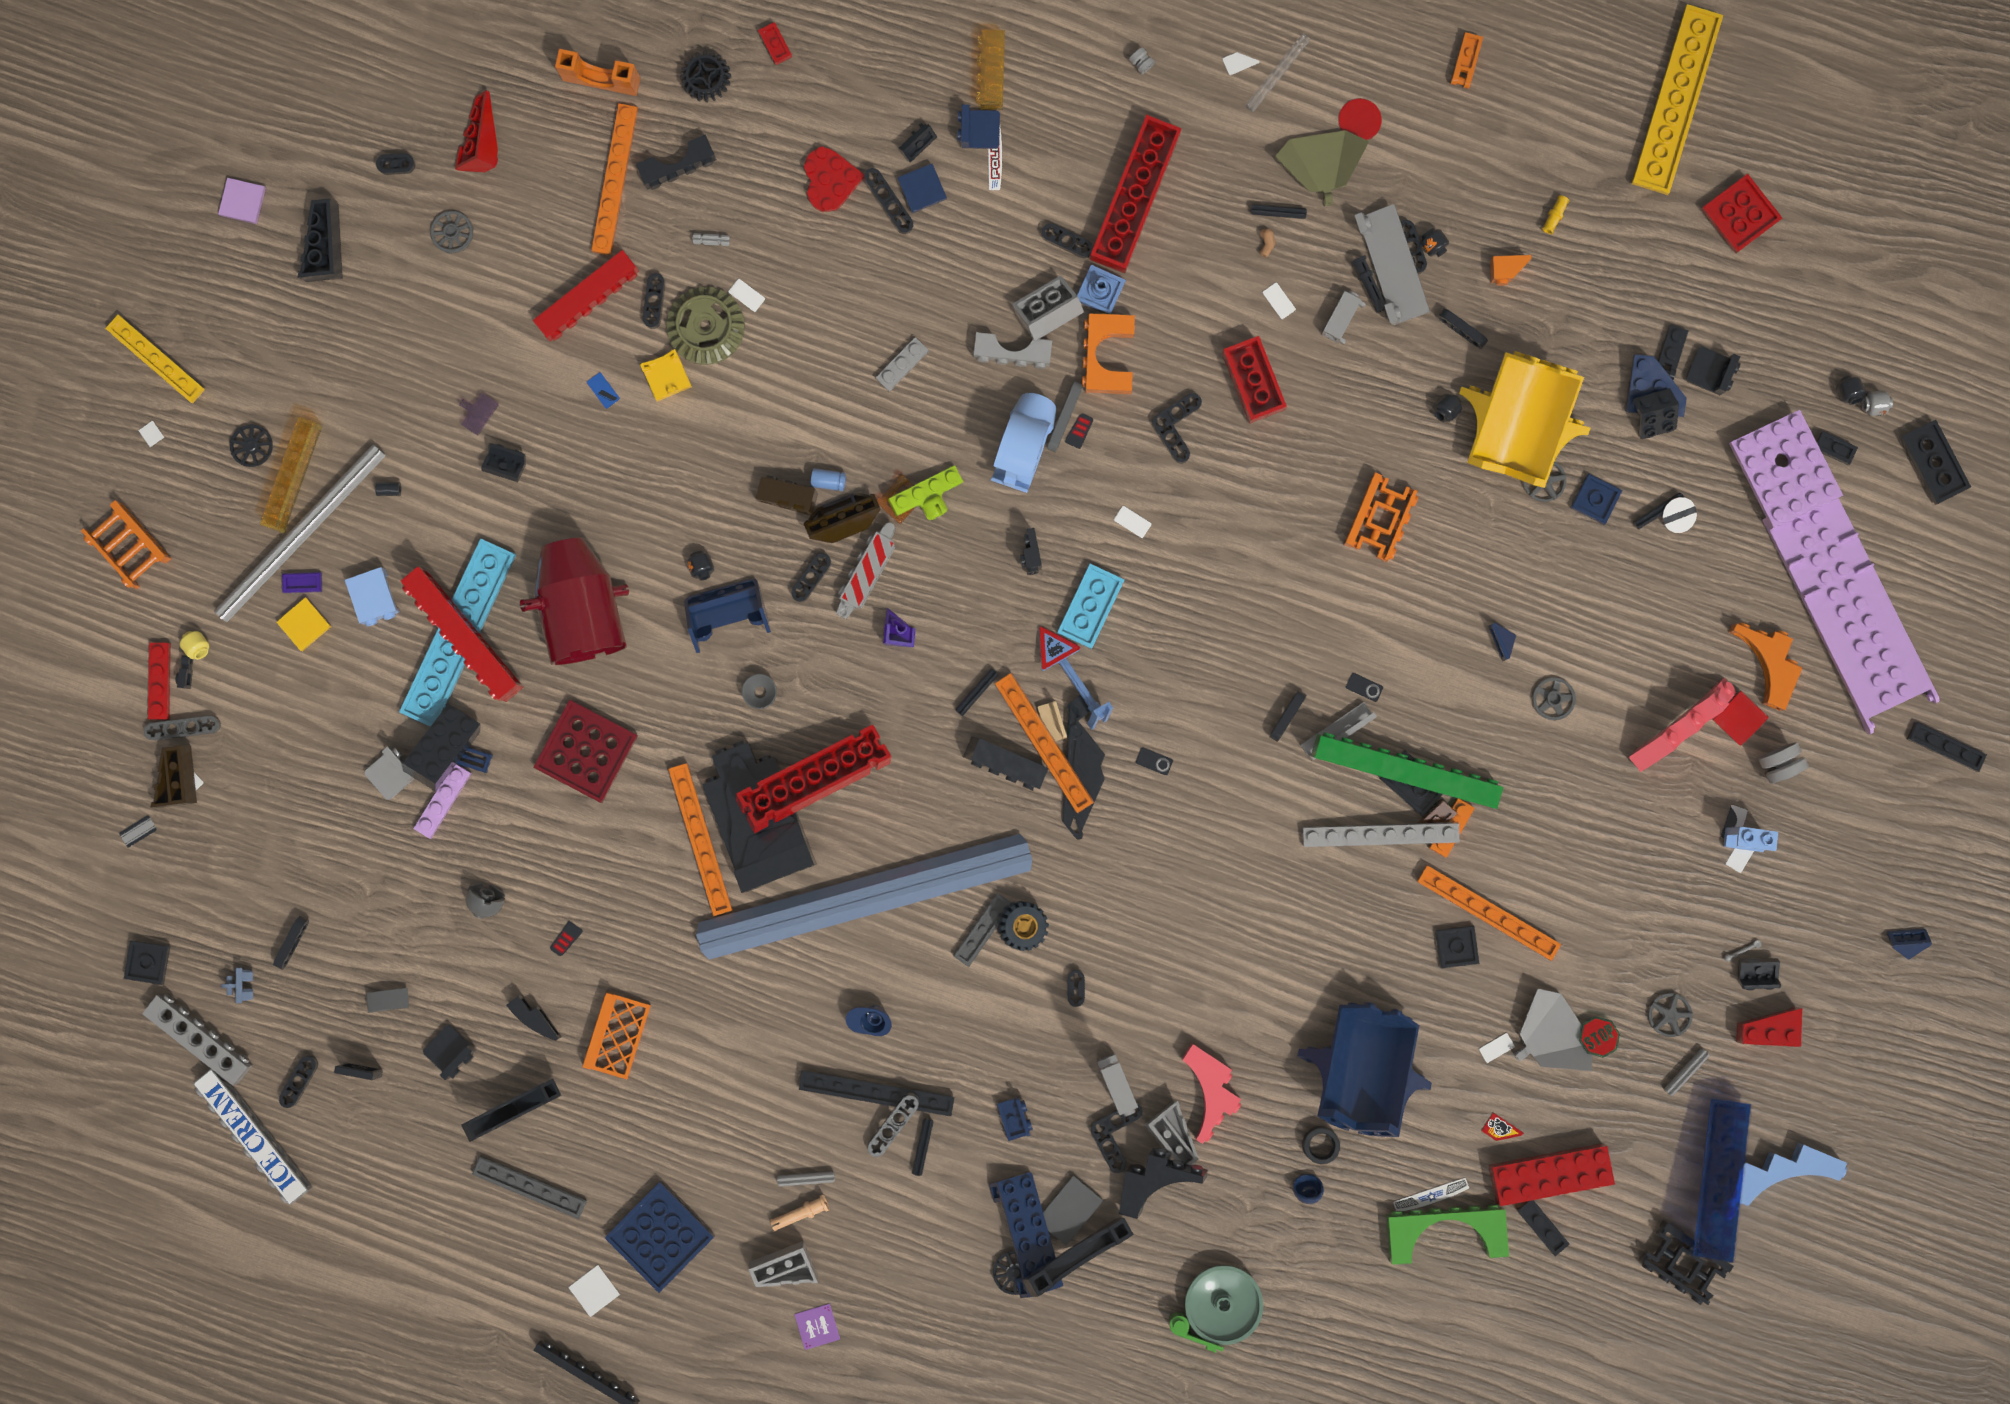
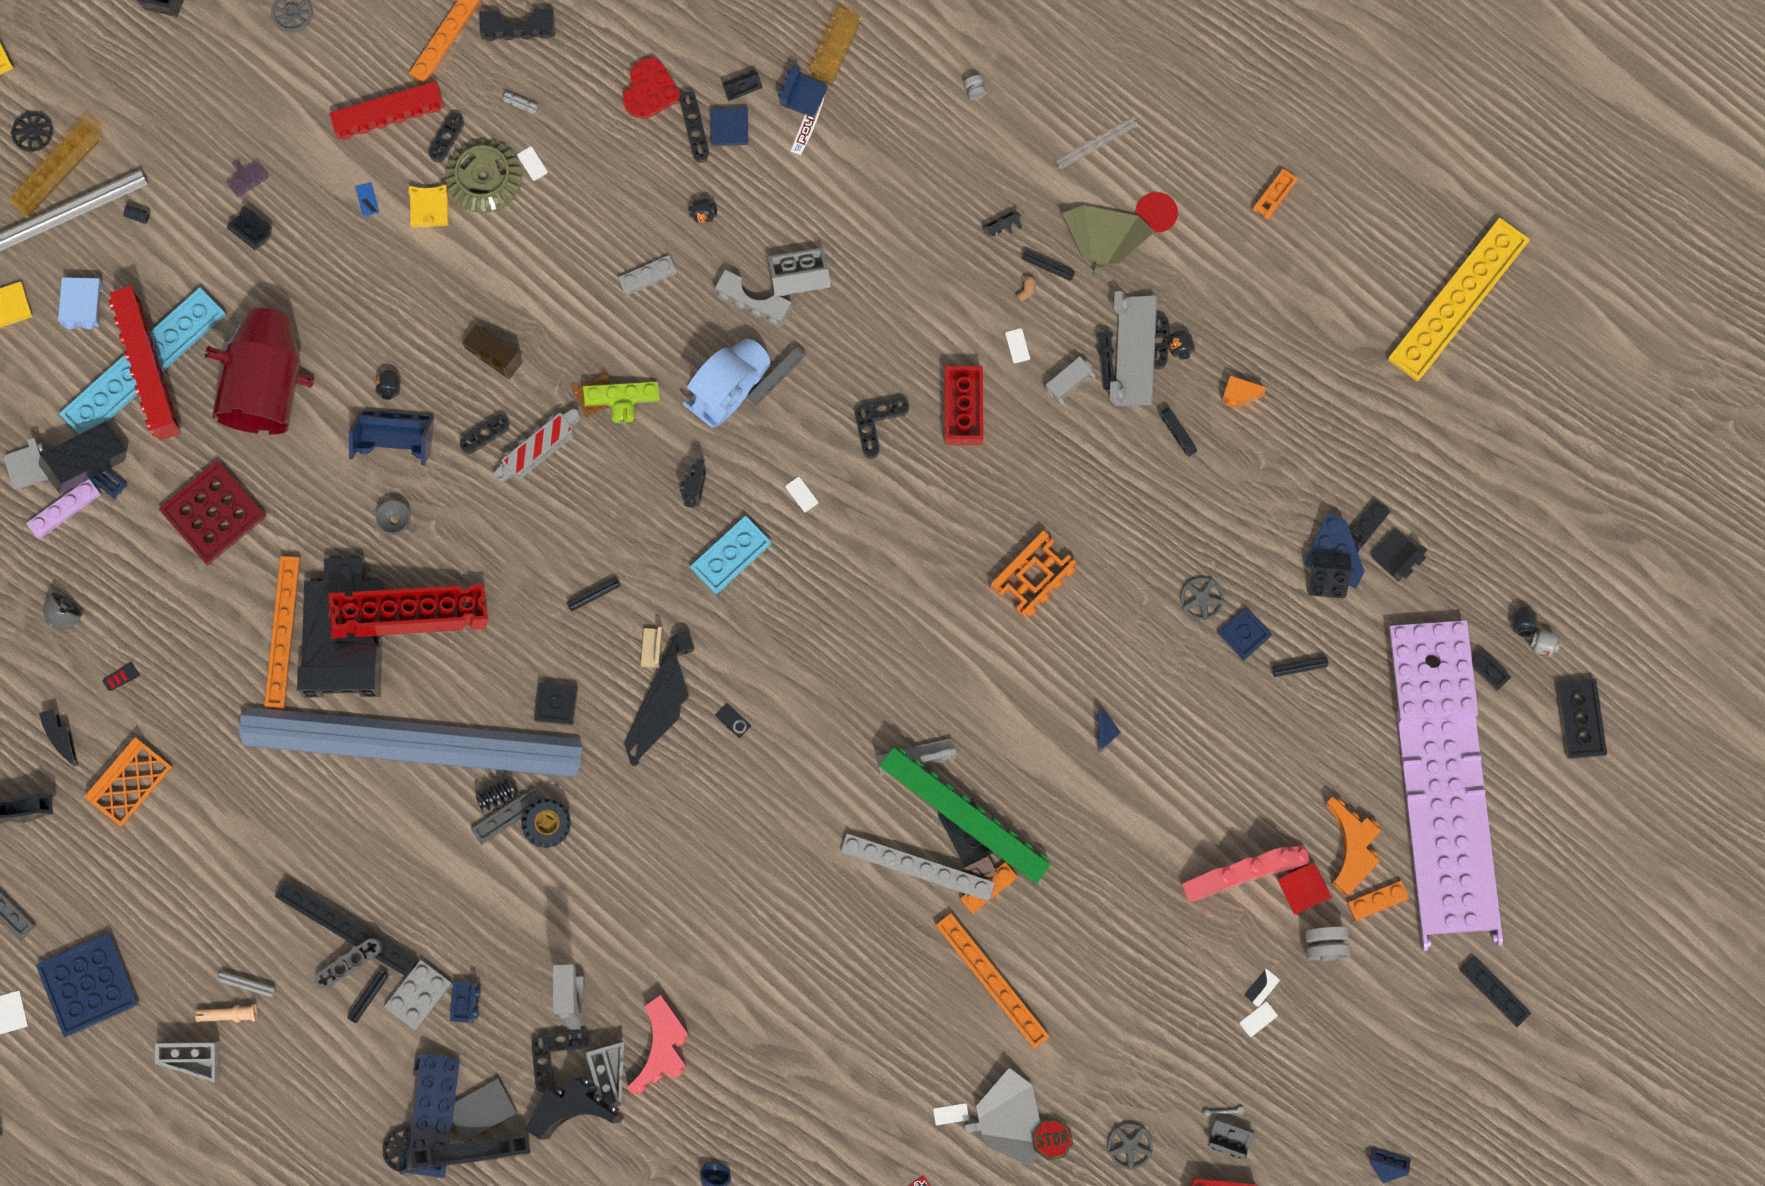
camera: 20 degrees right, 10 degrees down
(302, 582) = (23, 268): dark purple tile -> none
(817, 1326) = (198, 1129): medium lavender sticker -> none
(828, 479) = (536, 351): medium blue piece -> none
(842, 518) = (534, 390): dark brown wedge -> none
(869, 1020) = (366, 856): dark blue piece -> none
(897, 631) = (542, 511): dark purple slope -> none
(930, 281) = (703, 210): none -> black head
(964, 916) = (495, 794): none -> black piece
(968, 1128) = (418, 995): none -> light grey plate
(984, 809) = (556, 704): none -> black plate
(1005, 762) = (592, 667): black wedge -> none
(1044, 743) = (636, 663): orange plate -> none
(1052, 240) = (843, 213): black beam -> none
(1055, 650) = (683, 582): medium blue piece -> none
(1079, 431) = (785, 394): black sticker -> none
(1081, 988) = (577, 904): black beam -> none
(1100, 290) = (855, 275): medium blue plate -> none
(1100, 328) = (839, 309): orange arch -> none
(1135, 194) = (921, 201): red brick -> none
(1219, 186) = (1005, 221): none -> black plate
(1238, 62) = (1064, 121): white sticker -> none
(1287, 716) = (874, 724): black beam -> none
(1335, 1141) = (759, 1136): black tyre -> none
(1364, 687) = (958, 726): black sticker -> none
(1367, 1070) = (814, 1079): dark blue cylinder -> none
(1447, 407) = (1135, 498): black head -> none
(1457, 946) = (950, 1002): black tile -> none
(1525, 418) = (1201, 530): yellow cylinder -> none
(1554, 698) = (1133, 804): dark grey wheel -> none
(1555, 214) = (1305, 361): yellow pin -> none
(1679, 515) = (1318, 677): white sticker -> none
(1741, 213) = (1481, 423): red plate -> none
(1750, 839) = (1268, 1003): light blue panel -> none
(1810, 703) = (1378, 900): none -> orange plate

